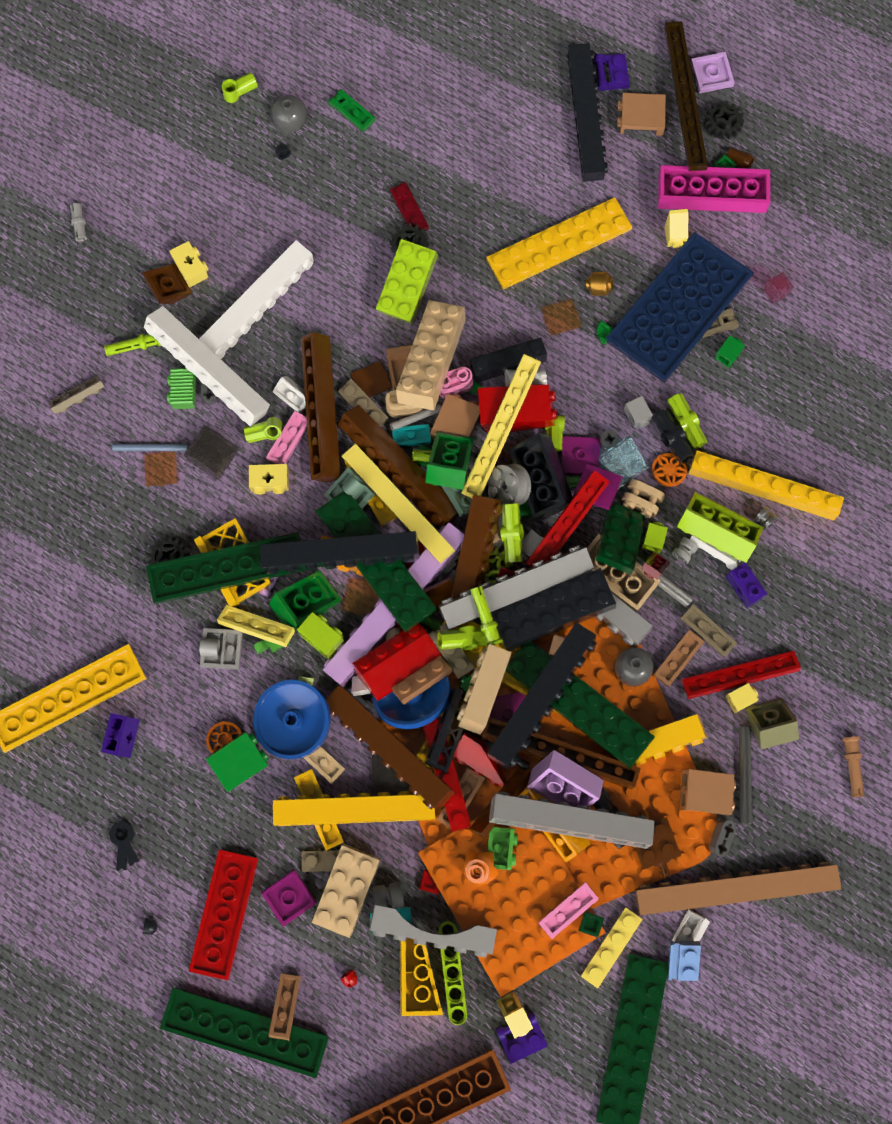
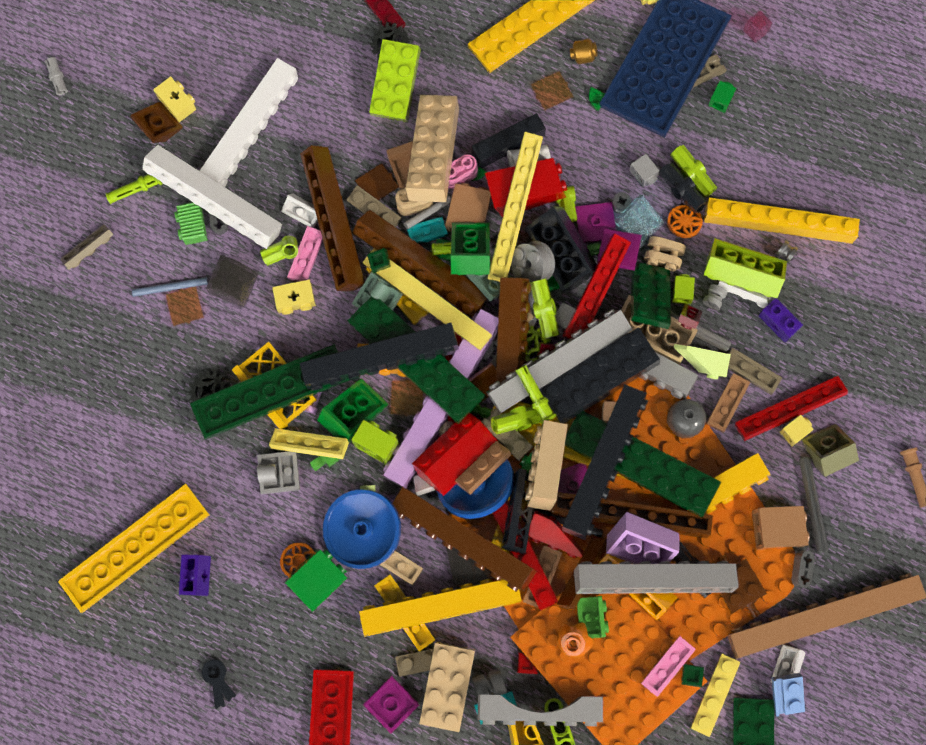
camera: 10 degrees left, 0 degrees up
(357, 456) = (379, 260): none -> dark green tile
(663, 613) = (705, 361): none -> yellowish green slope

